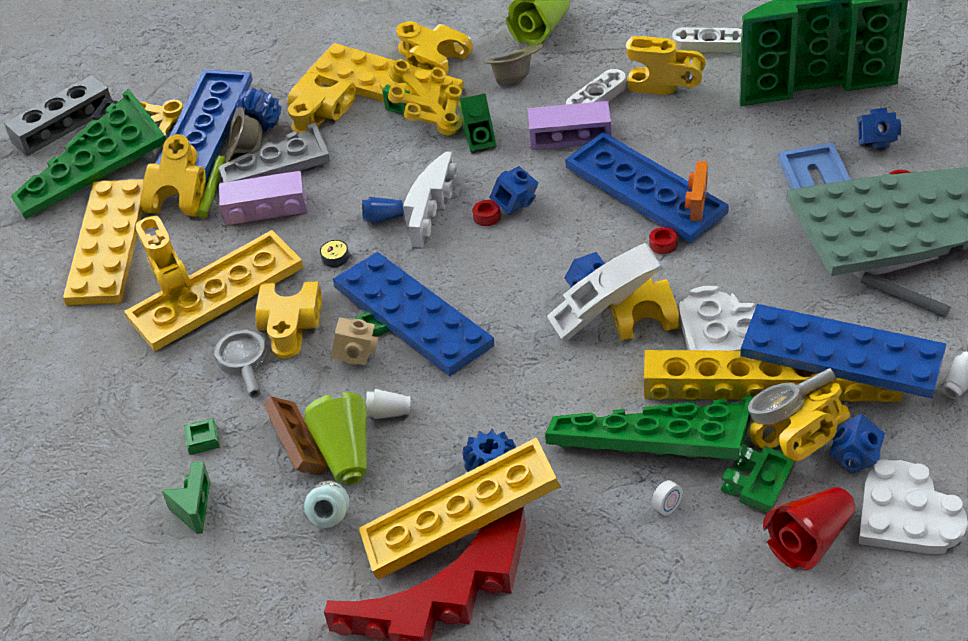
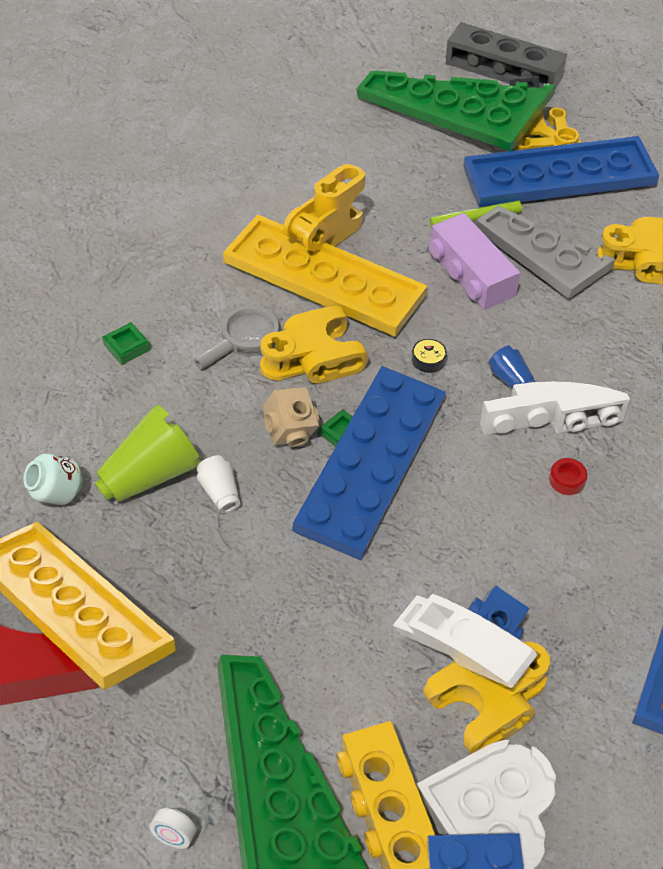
camera: 60 degrees right, 5 degrees up
(105, 244) = (383, 157): yellow plate -> none
(174, 176) = (455, 176): yellow piece -> none
(191, 501) = (29, 369): green slope -> none
(244, 135) = (556, 209): dark tan piece -> none
(261, 107) = (599, 202): blue gear -> none
(295, 436) = (170, 394): dark orange plate -> none
(485, 448) = (178, 608): blue gear -> none
(514, 190) = (607, 487): blue brick -> none
(663, 240) = (621, 688): red tile -> none

